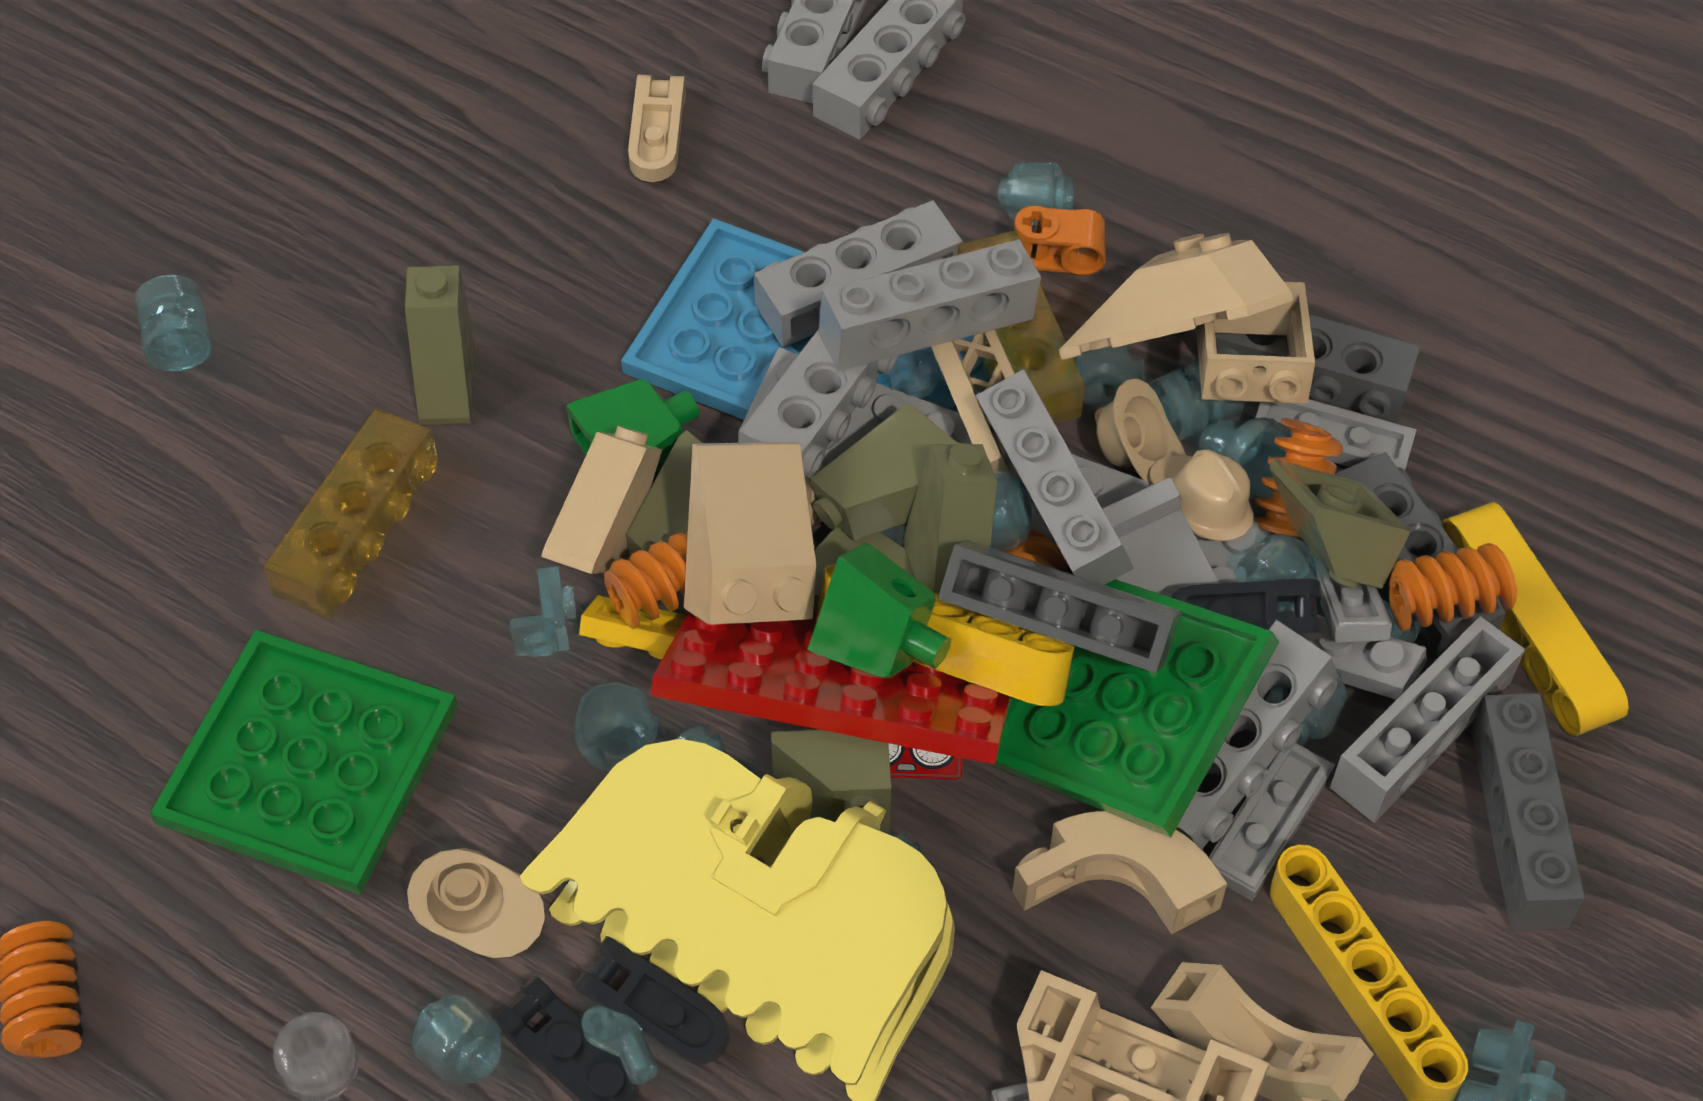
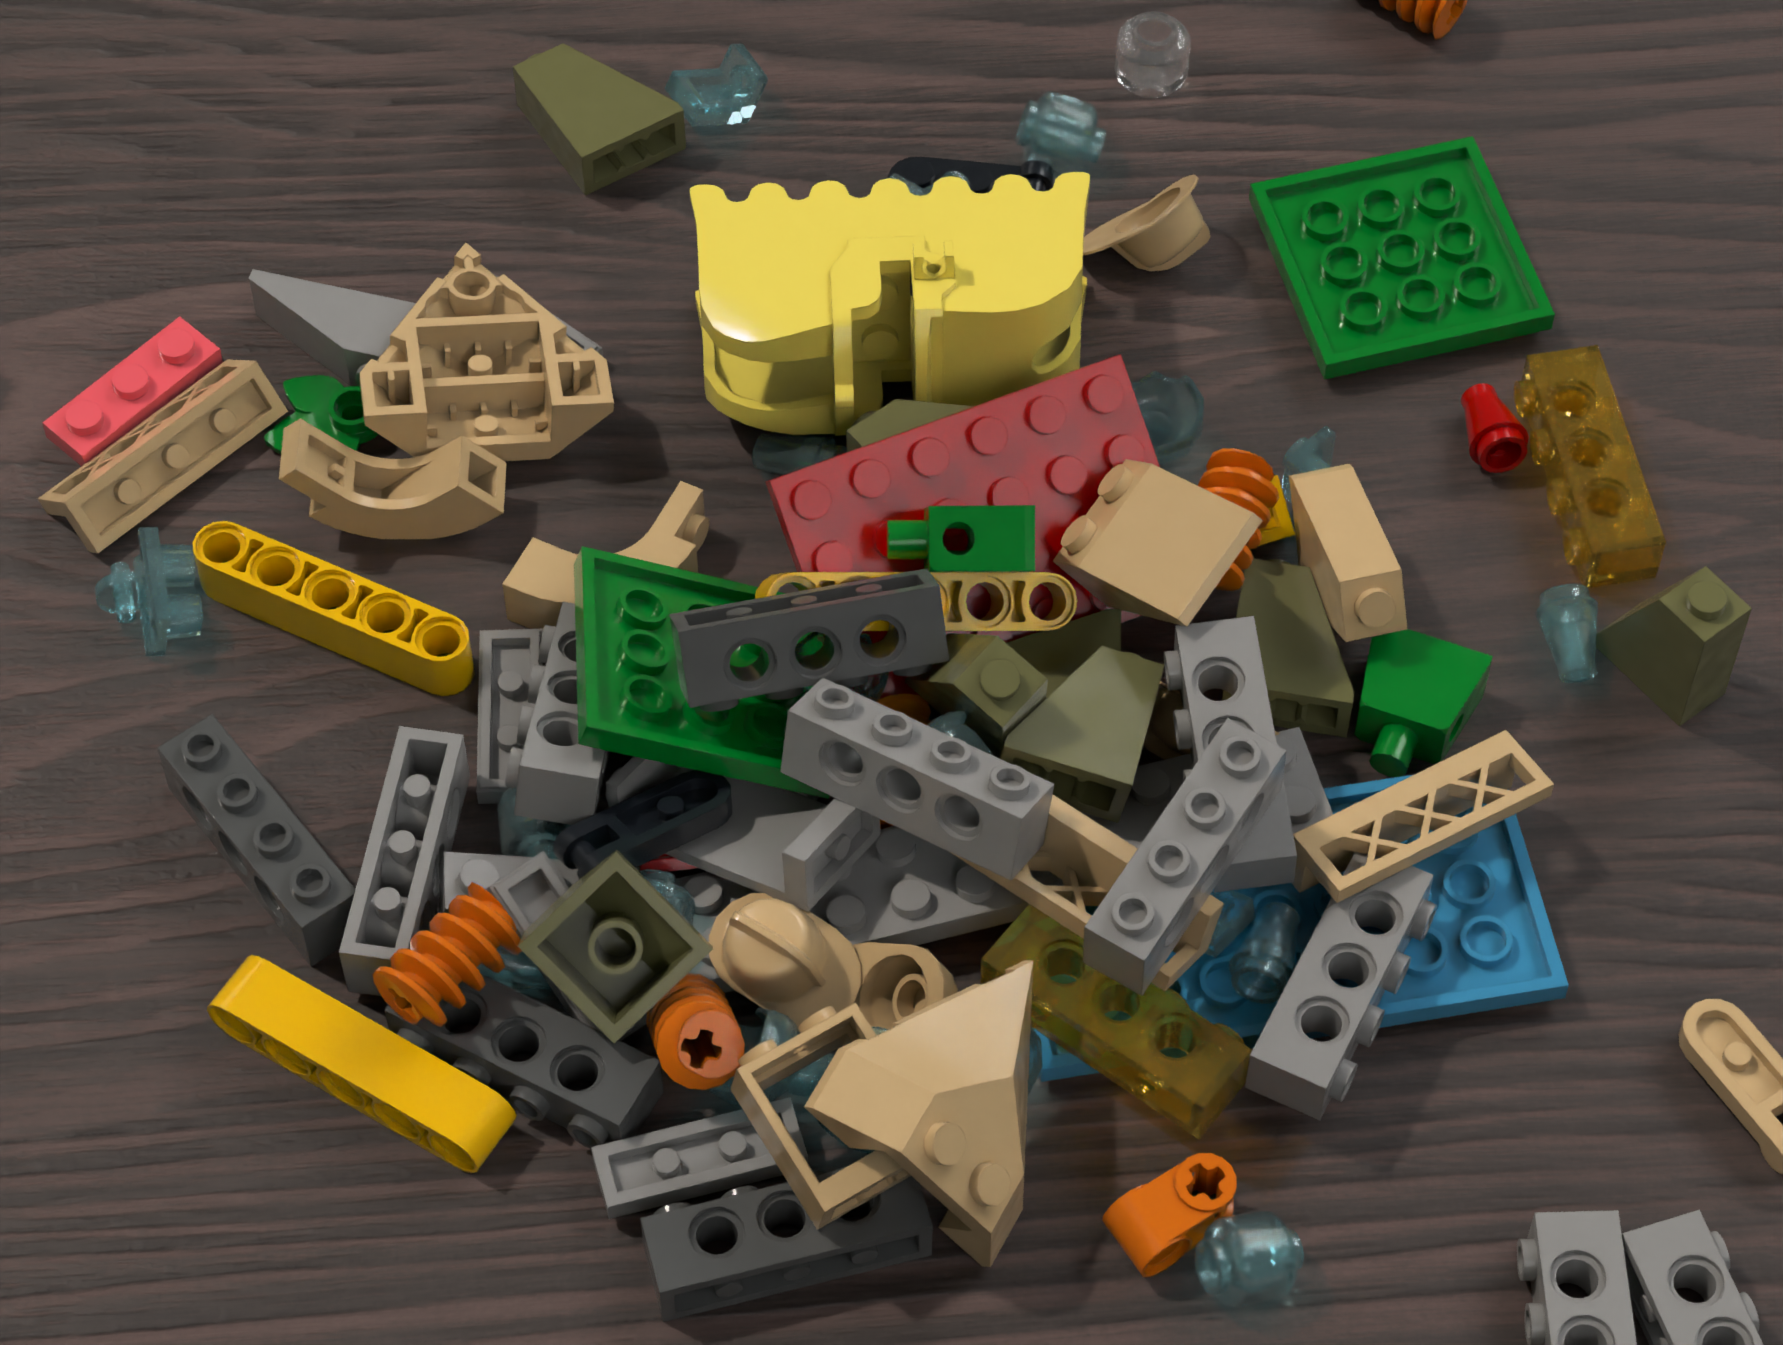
camera: 145 degrees right, 0 degrees up
(387, 581) = (1493, 432): none -> red cone
(483, 421) = (1570, 629): none -> clear light blue cone
(680, 332) = (1413, 807): none -> tan fence

